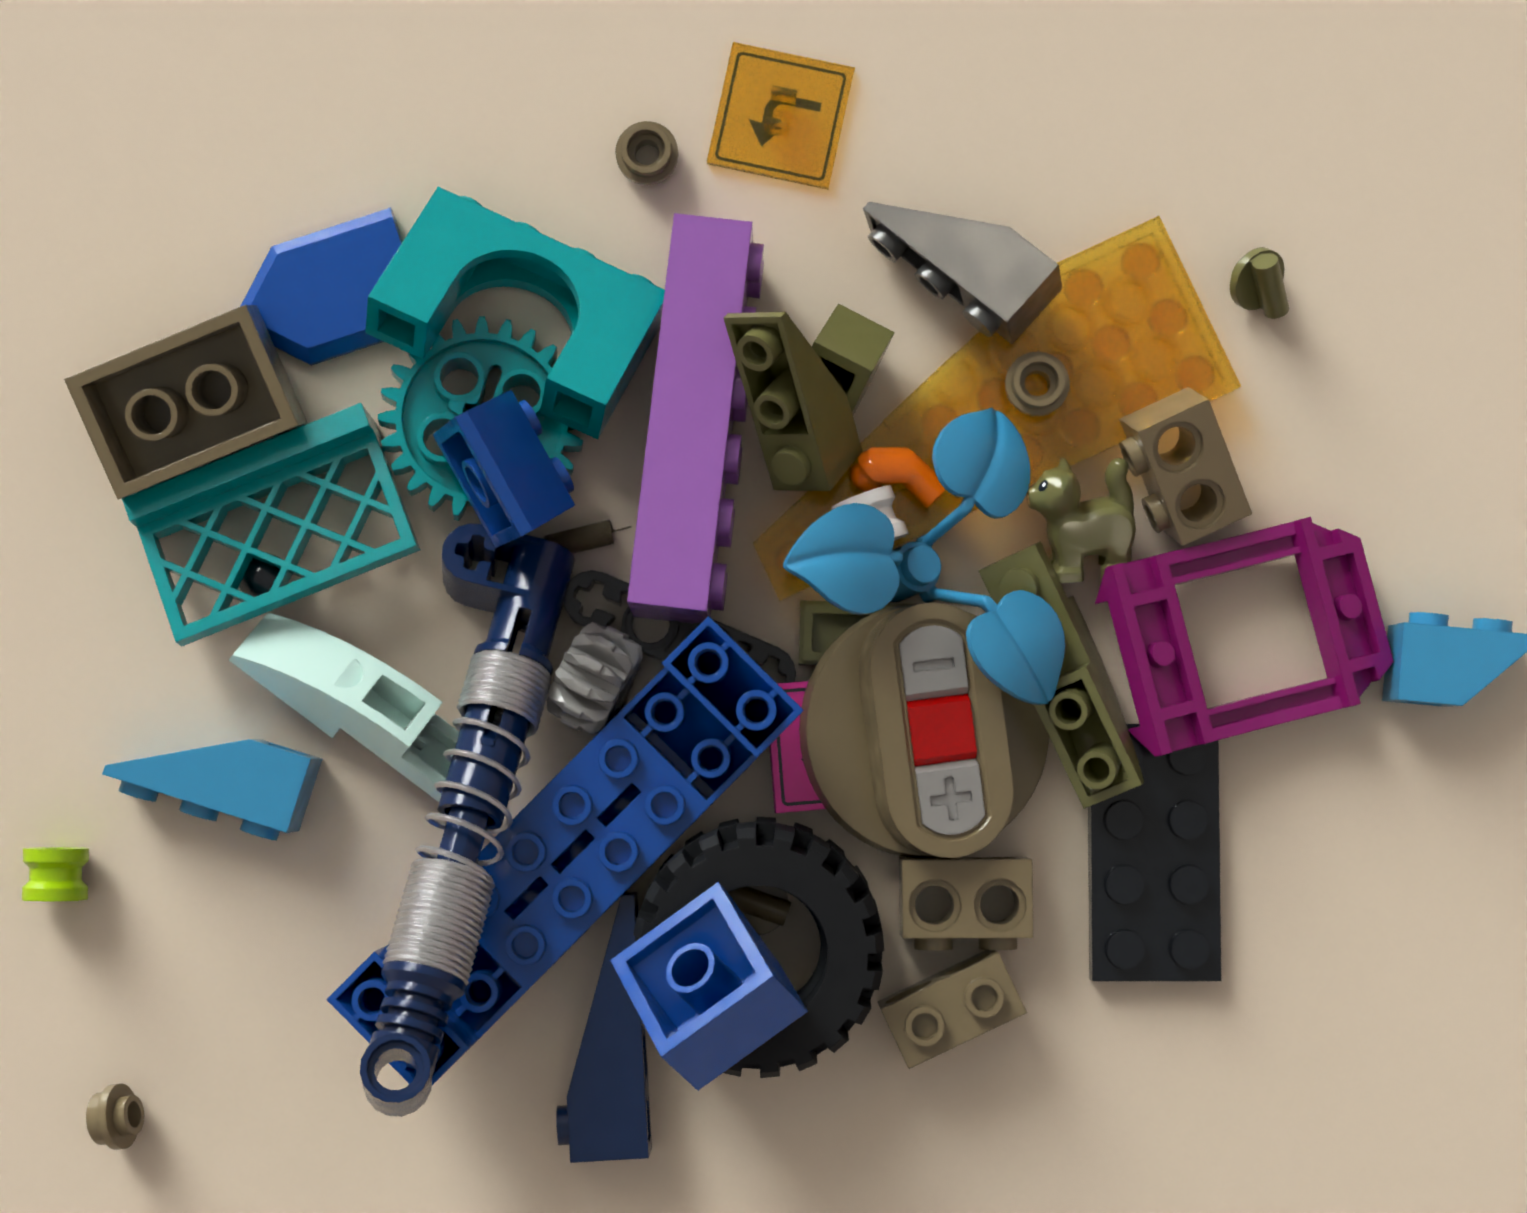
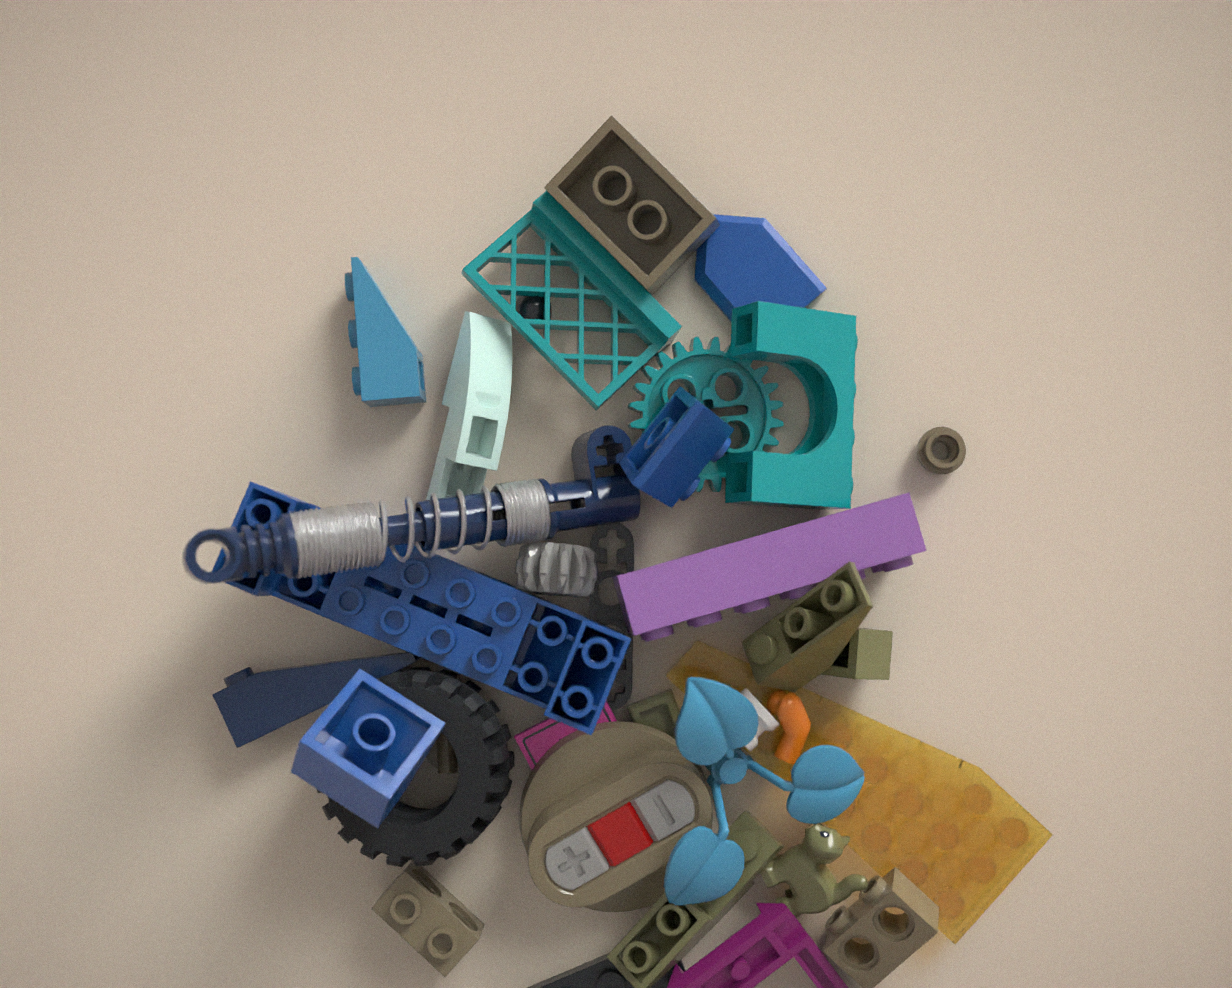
camera: 60 degrees right, 0 degrees up
(55, 874) = (271, 254): lime wheel -> none
(115, 1117) = (122, 364): dark tan plate -> none
(585, 537) = (653, 520): dark tan piece -> none
(780, 115) = (1007, 532): clear yellow piece -> none
(966, 882) = (515, 893): dark tan brick -> none
(978, 263) = (962, 721): slope -> none
(1046, 366) = (910, 798): dark tan plate -> none
(1259, 283) = (1035, 927): olive plate -> none

